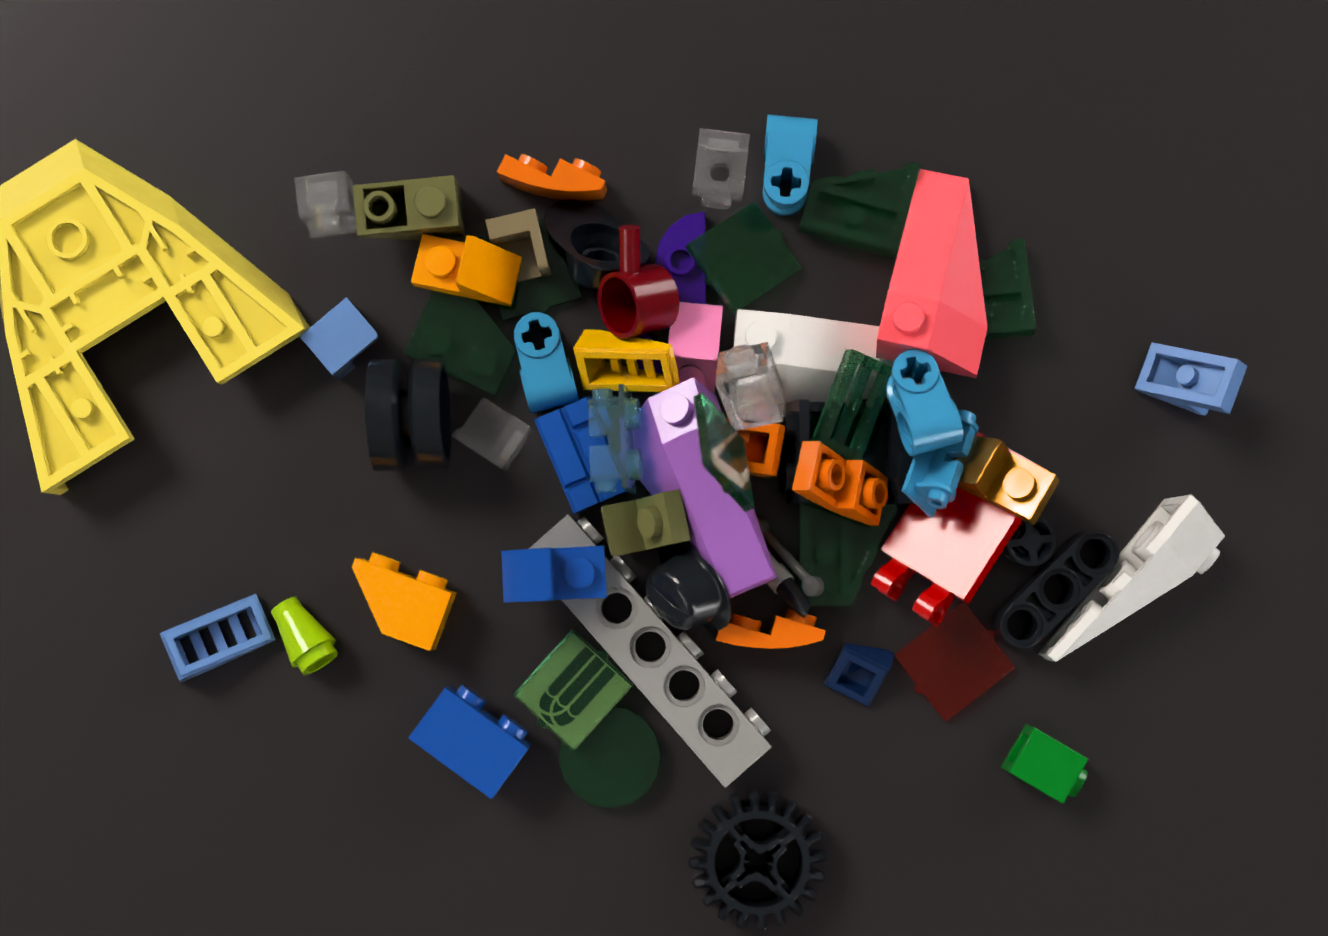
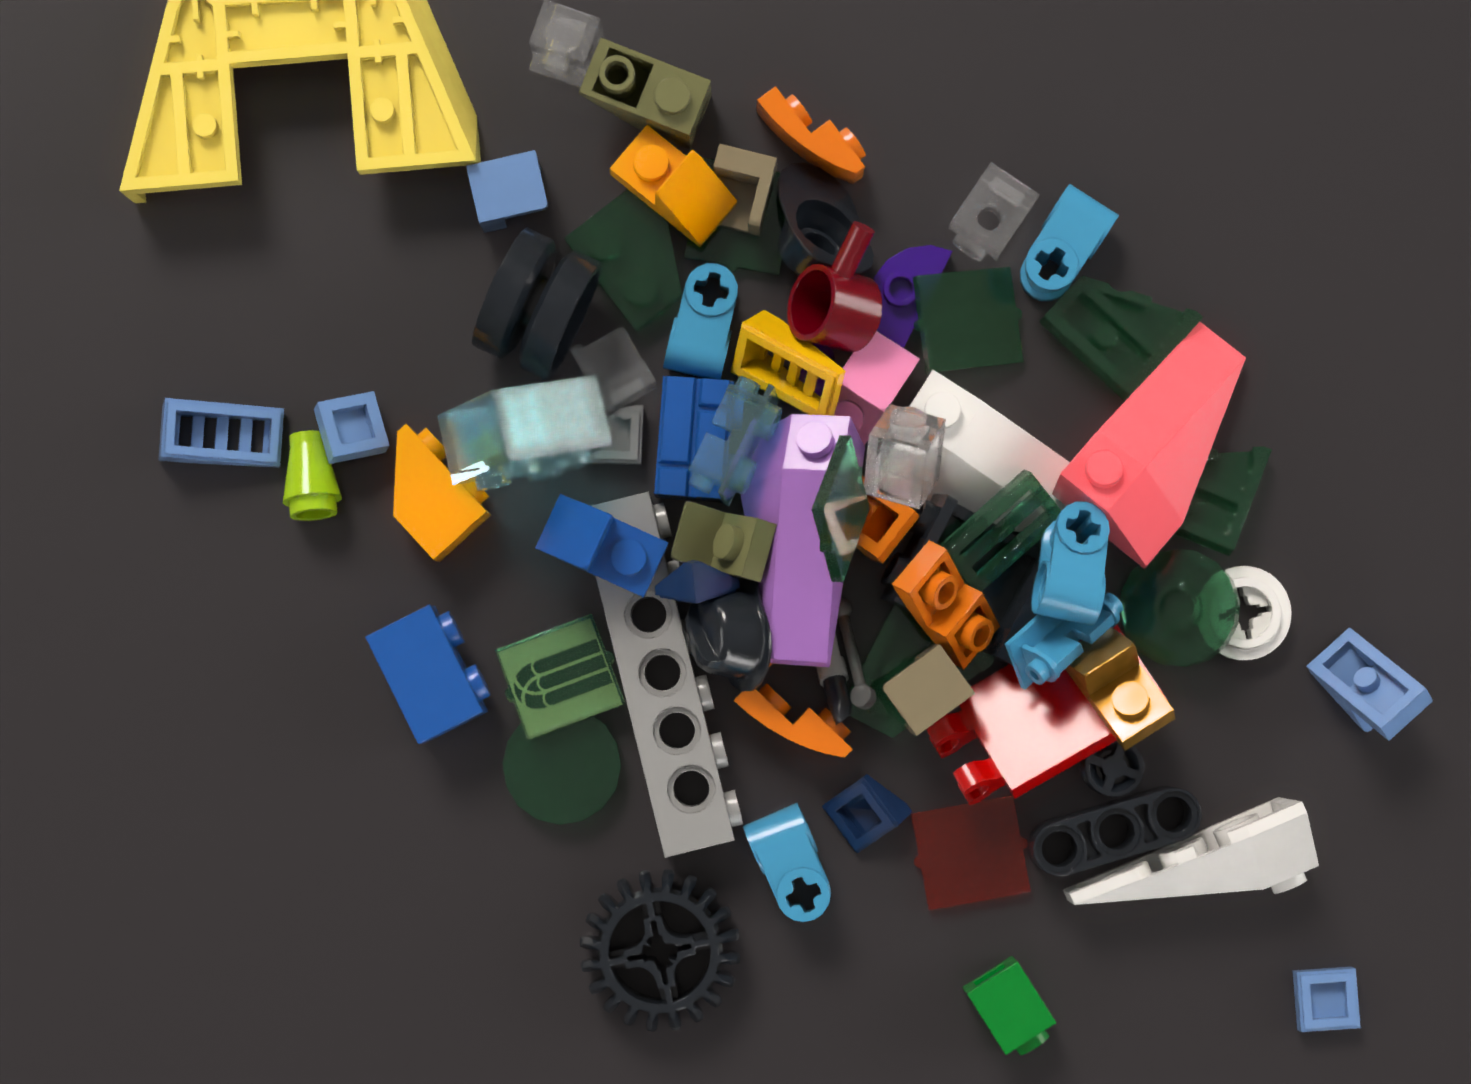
camera: 25 degrees right, 0 degrees up
(315, 581) = (351, 427): none -> medium blue plate
(450, 518) = (525, 432): none -> clear light blue brick
(523, 485) = (626, 438): none -> light grey tile
(641, 566) = (696, 583): none -> dark blue slope
(815, 736) = (787, 852): none -> dark azure piece
(860, 555) = (927, 689): none -> dark tan panel
(1018, 394) = (1180, 608): none -> clear green tile
(1069, 349) = (1268, 628): none -> white gear
(1280, 633) = (1326, 999): none -> medium blue tile

